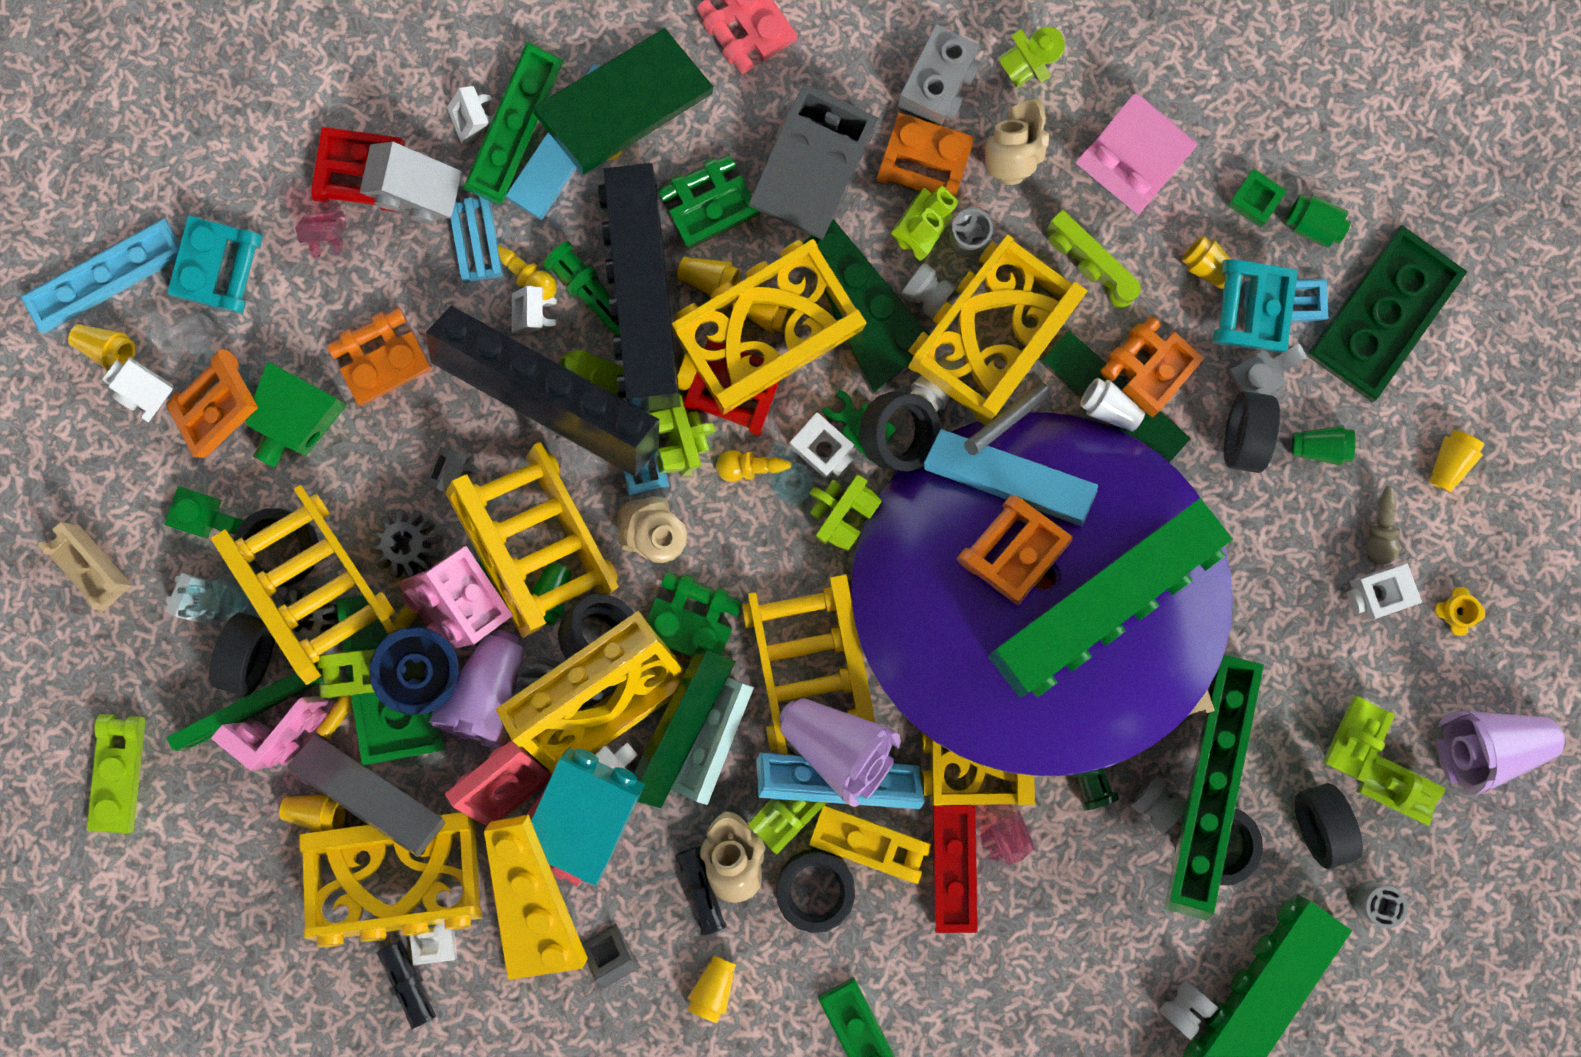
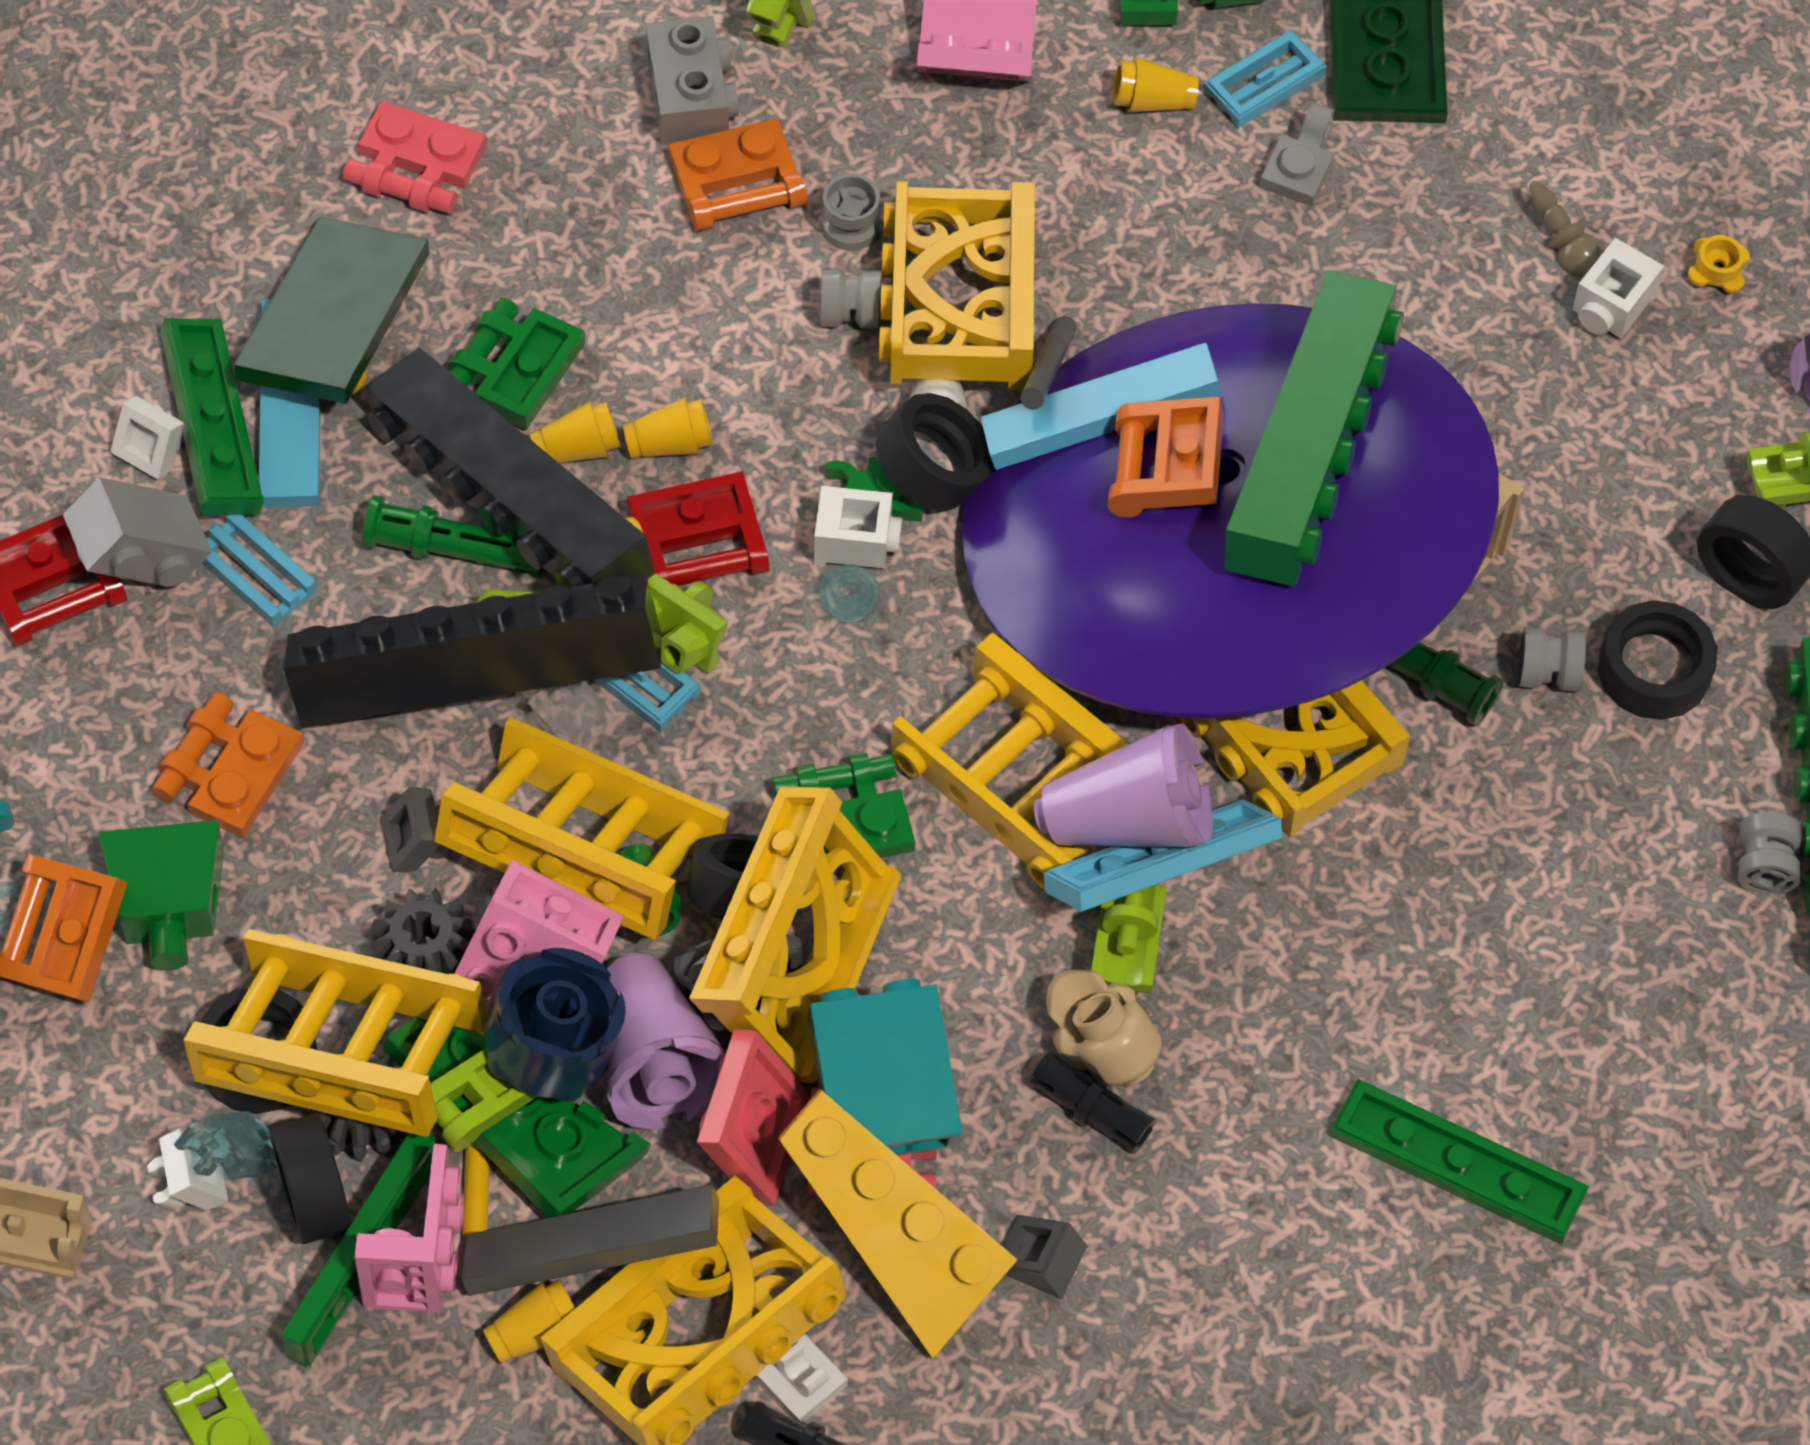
camera: 35 degrees left, 25 degrees down
(199, 514) = (121, 1080): green plate -> none
(322, 228) = (52, 664): clear pink tile -> none
(527, 311) = (382, 591): white tile -> none
(528, 274) = (373, 567): yellow bar -> none
(651, 529) = (719, 734): tan head -> none
(681, 724) = (923, 911): dark green tile -> none
(712, 991) = (1197, 1203): yellow cone -> none
(713, 743) = (971, 920): light aqua plate -> none
(734, 465) = (763, 621): yellow bar -> none
(809, 922) = (1227, 1052): black tyre -> none
(813, 161) = (611, 237): dark grey slope -> none
(824, 336) = (712, 499): yellow fence -> none
(856, 497) = (939, 605): lime hips -> none
(868, 843) = (1253, 918): yellow plate -> none
(890, 326) = (807, 368): dark green wing -> none
(924, 221) = (788, 230): lime hips -> none
(955, 869) = (1376, 880): red plate -> none
(1011, 838) = (1414, 803): clear pink tile -> none
(1017, 143) = (834, 91): tan head -> none
(1079, 366) = (1145, 283): dark green tile -> none
(1093, 259) = (1015, 156): lime plate -> none
(1111, 405) = (1156, 282): white cone -> none
(1163, 372) = (1186, 224): orange plate -> none
(1214, 789) = (1597, 582): green brick -> none
(1251, 432) = (1334, 213): black tyre -> none
(1267, 306) = (1247, 83): teal plate -> none
(1325, 445) = (1429, 188): green cone -> none
(1359, 738) = (1716, 450): lime hips -> none
(1455, 459) = (1582, 117): yellow cone -> none

